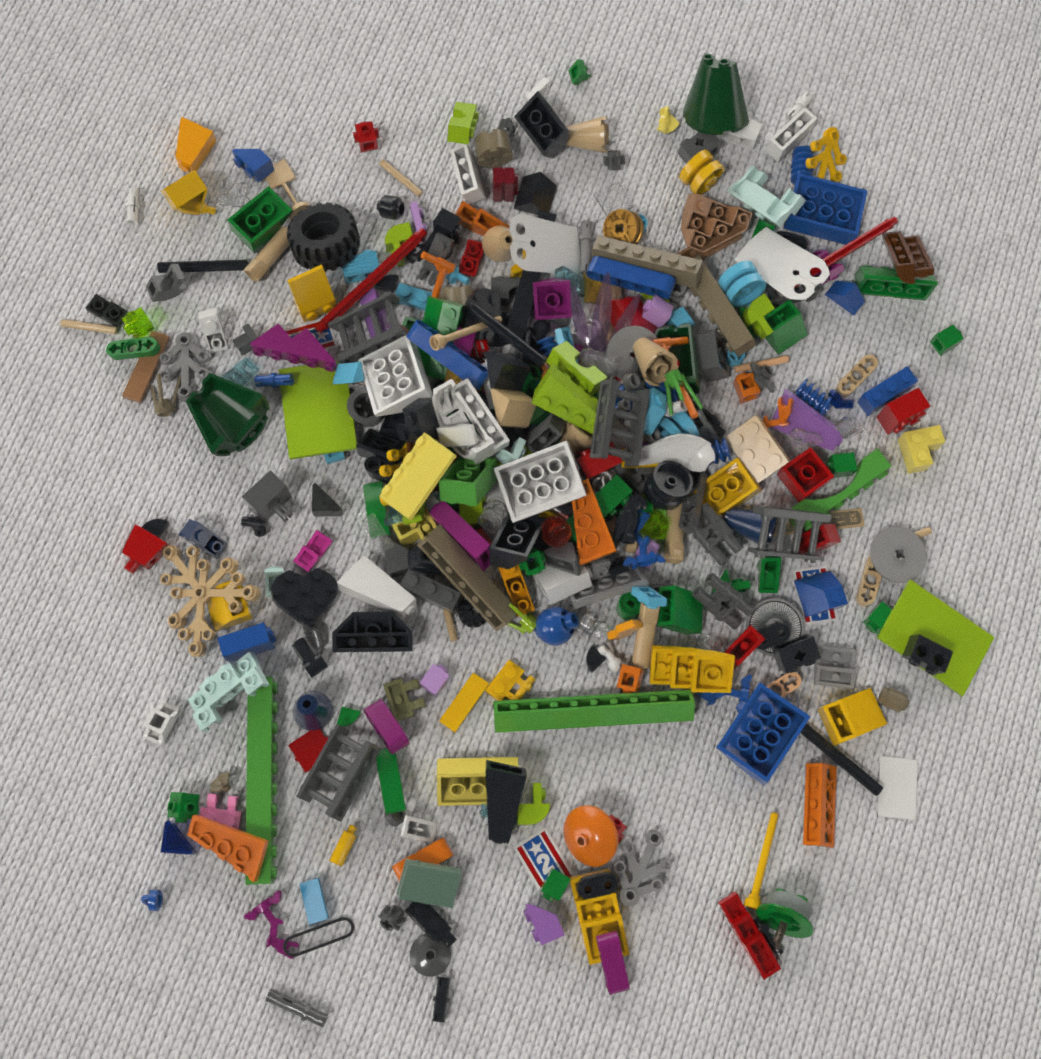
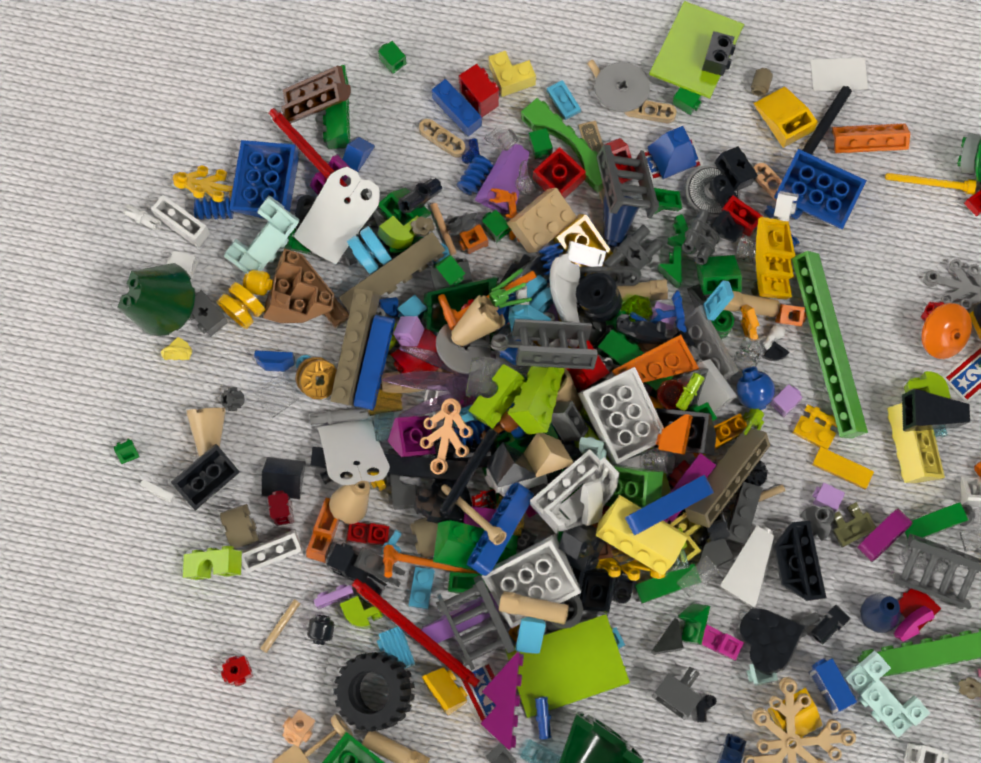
camera: 90 degrees left, 0 degrees up
(291, 732) = (909, 626): none -> dark pink slope
(305, 177) = (298, 728): none -> light nougat brick
(337, 529) = (695, 623): none -> green slope
(348, 716) = (880, 577): green tile -> none
(373, 362) = (533, 607): none -> tan piece
(387, 283) = (412, 615): black tile -> none
(412, 666) = (820, 526): none -> dark grey plate
(440, 501) = (669, 505): none -> blue beam
(506, 125) = (207, 519): dark grey plant -> none
(509, 524) = (675, 436): none -> orange slope
(541, 658) = (786, 400): none -> lavender brick
(555, 547) = (690, 391): none -> lime axle
(568, 324) = (445, 433): none -> light nougat plant
(646, 198) = (274, 360): none -> blue slope
(687, 301) = (389, 306): none -> blue tile
(691, 572) = (672, 271): none -> green slope
(710, 345) = (450, 270): none -> green brick
(717, 485) = (585, 255): none -> white tile
(722, 189) = (257, 282): none -> yellow head
(731, 629) = (727, 227): none -> black bracket
(747, 688) = (785, 205): none -> white brick
(760, 333) = (422, 226): none -> dark tan plant
(760, 406) = (495, 225): none -> green brick
(795, 340) = (420, 195): none -> black piece
(835, 667) = (741, 133): light grey slope -> none
(888, 495) = (563, 100): none -> medium azure plate

